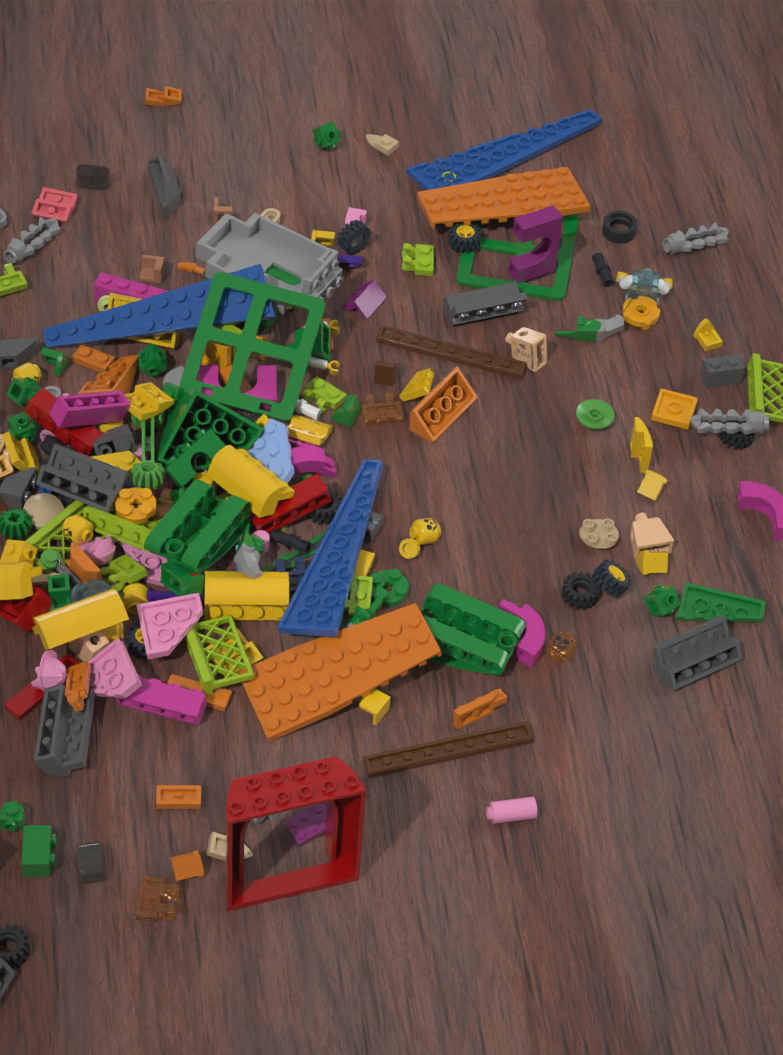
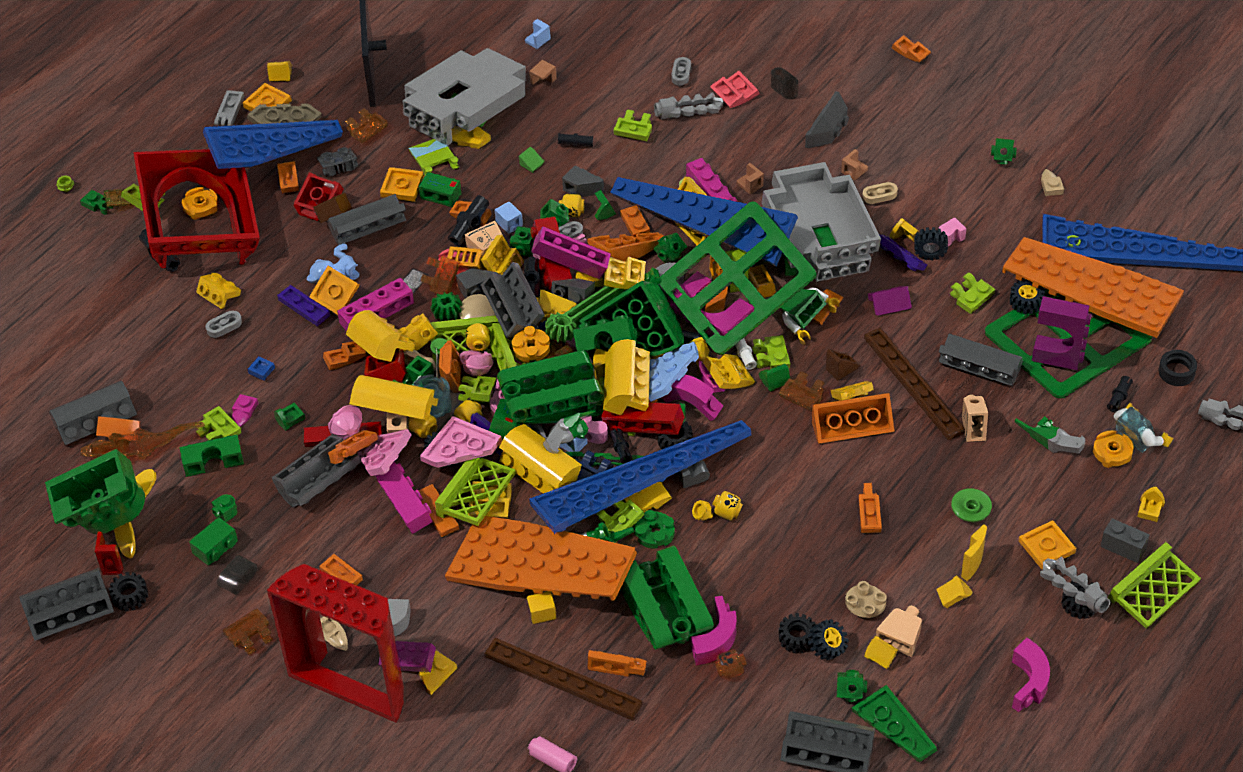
camera: 50 degrees right, 0 degrees up
(528, 465) = (869, 510): none -> orange hinge

